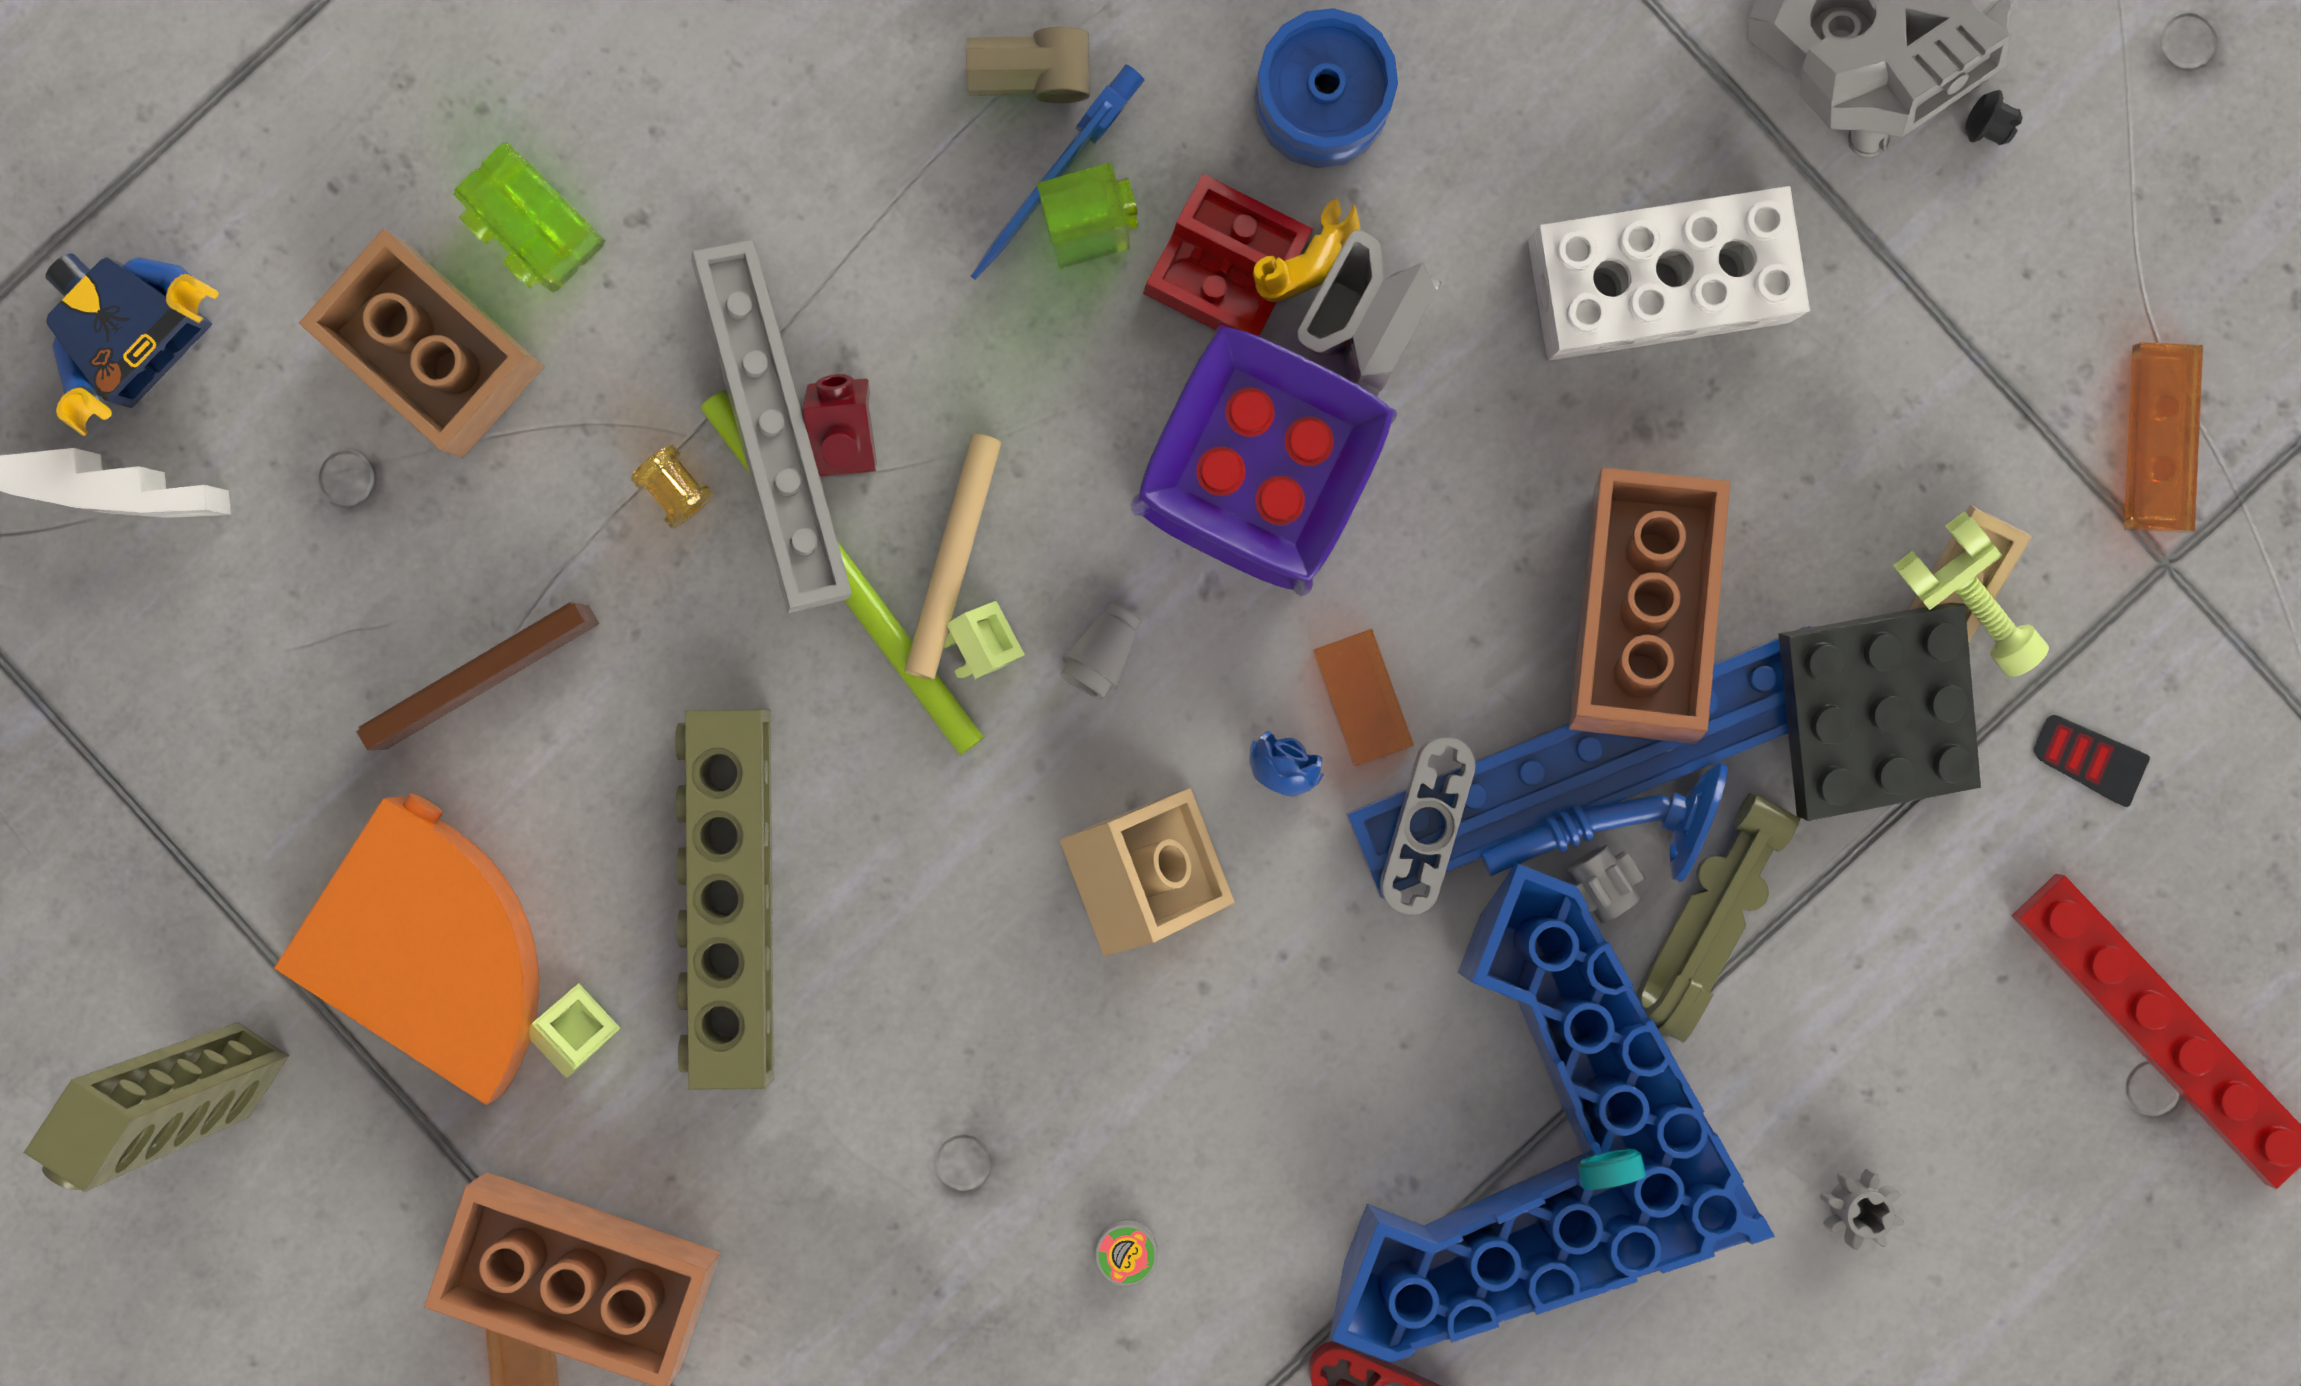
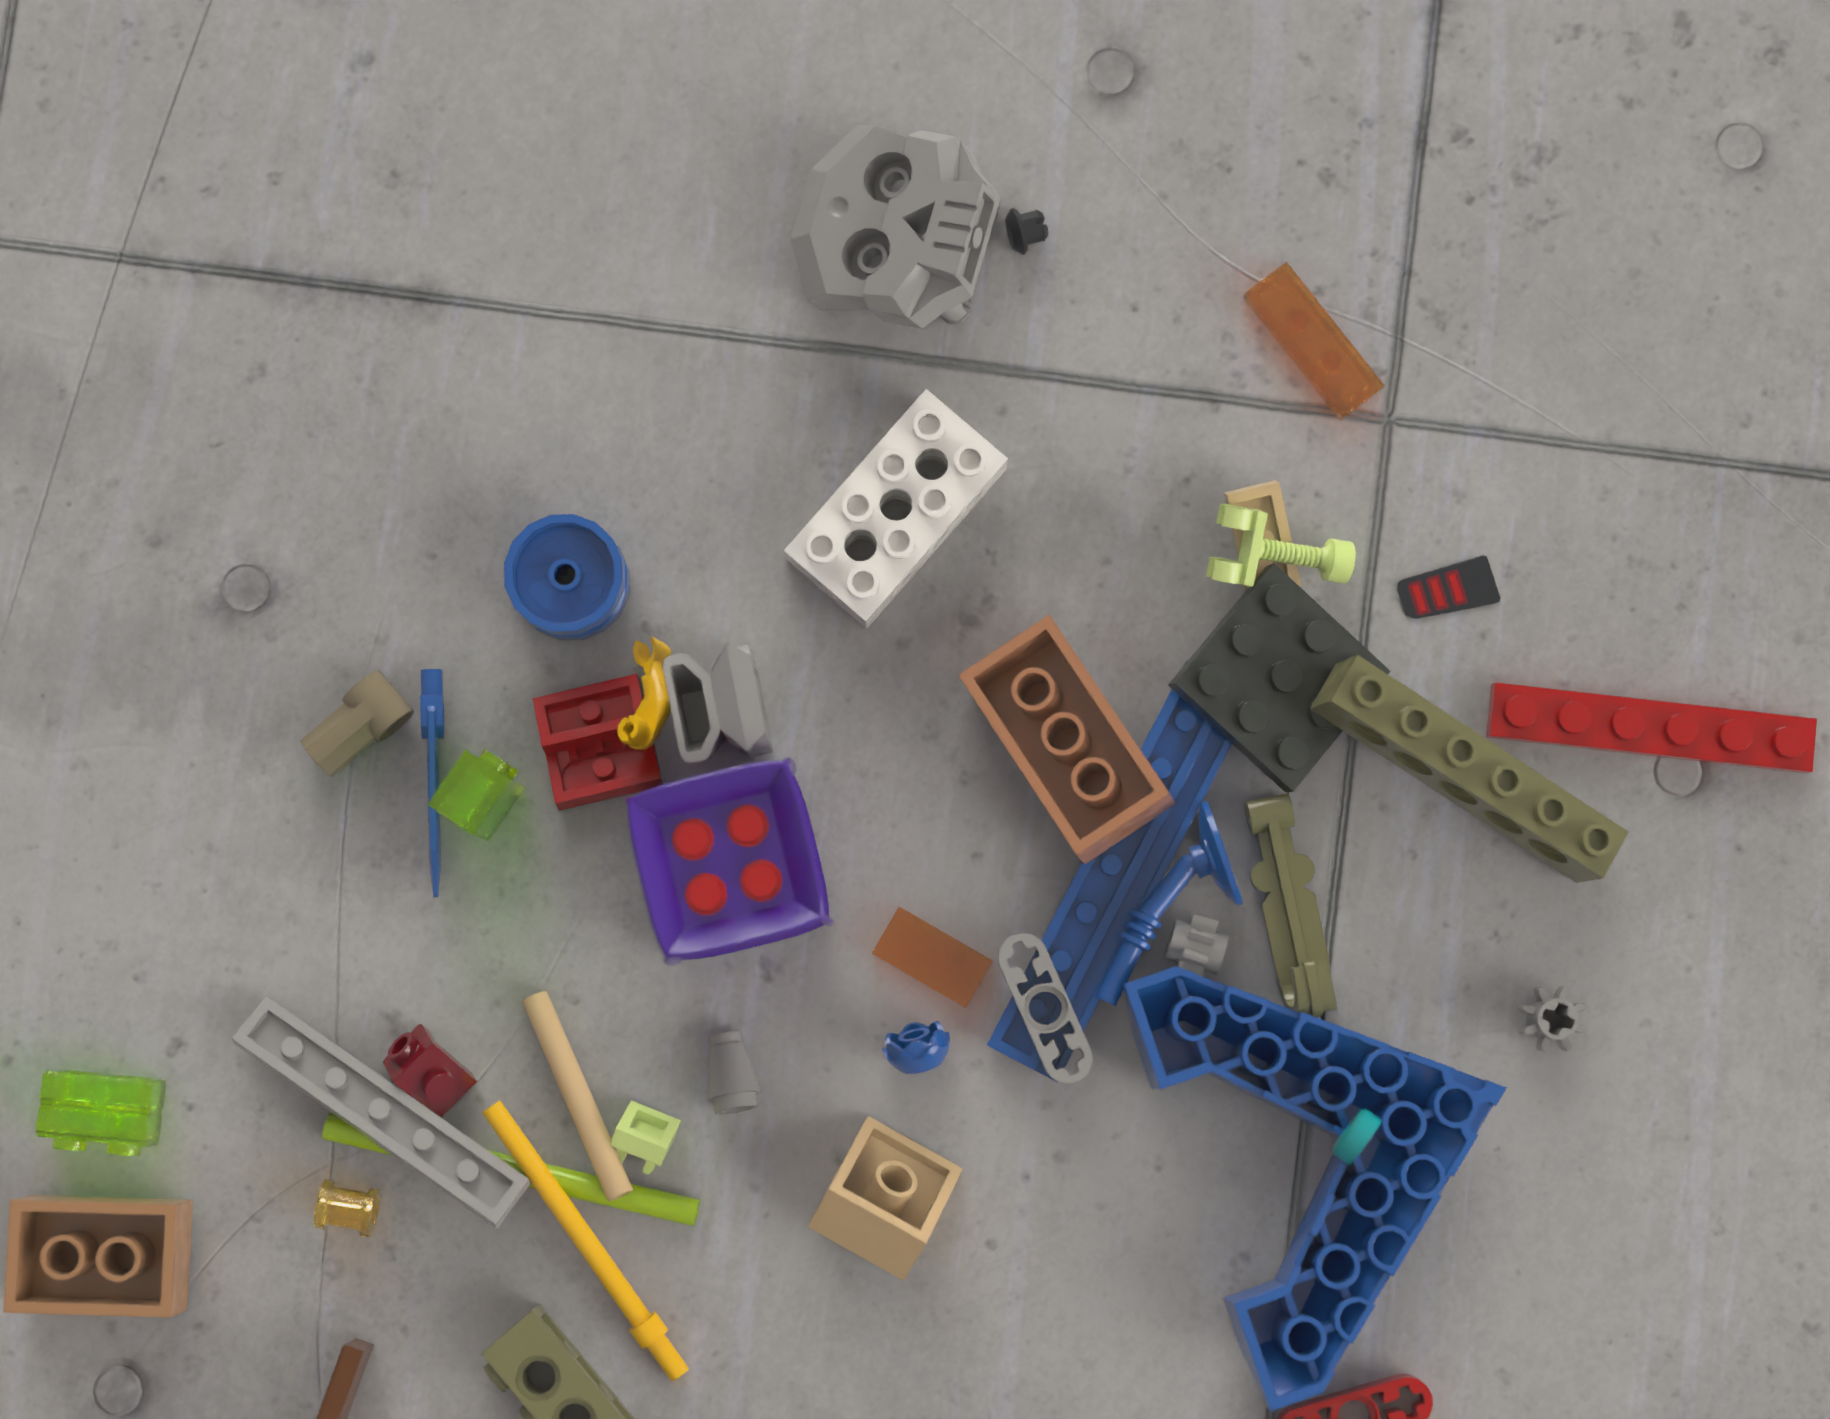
camera: 35 degrees left, 5 degrees down
(846, 808) = (646, 1327): none -> yellow bar
(1981, 932) = (1469, 770): none -> olive brick

